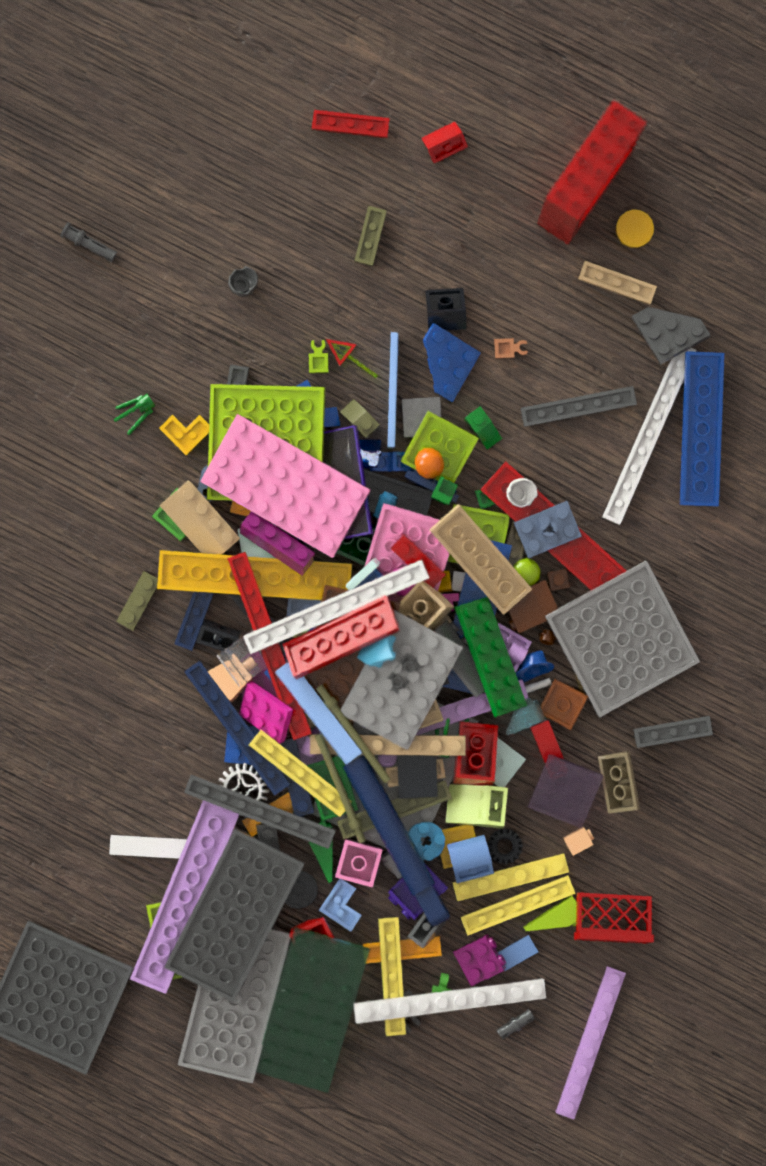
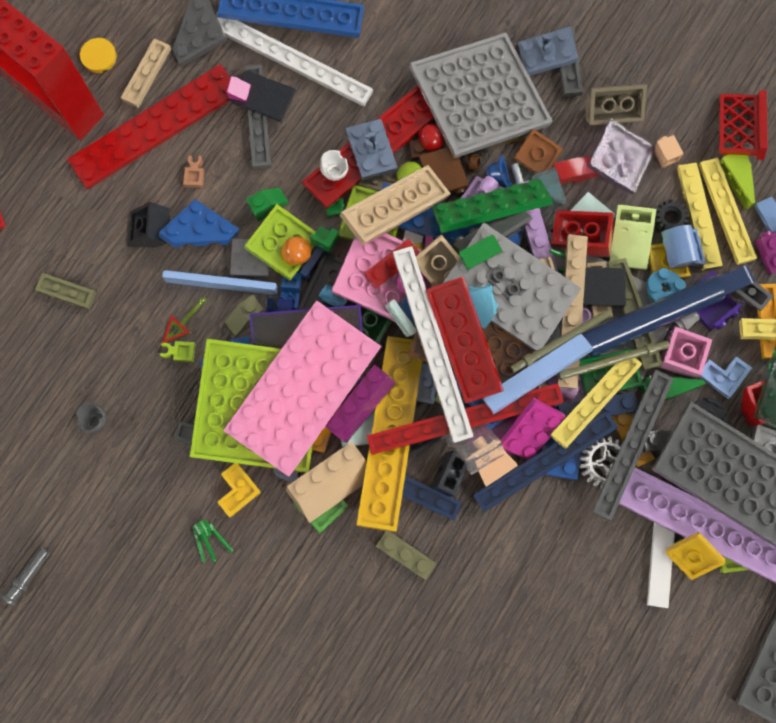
camera: 85 degrees left, 10 degrees down
(158, 875) = (695, 555): none -> yellow plate
(429, 645) = (480, 252): none -> green tile
(559, 299) = (151, 127): none -> red plate
(568, 590) = (431, 137): none -> red hair
(599, 410) = (266, 96): none -> black tile
(600, 384) = (238, 89): none -> slope
(680, 708) = (548, 51): none -> sand blue plate

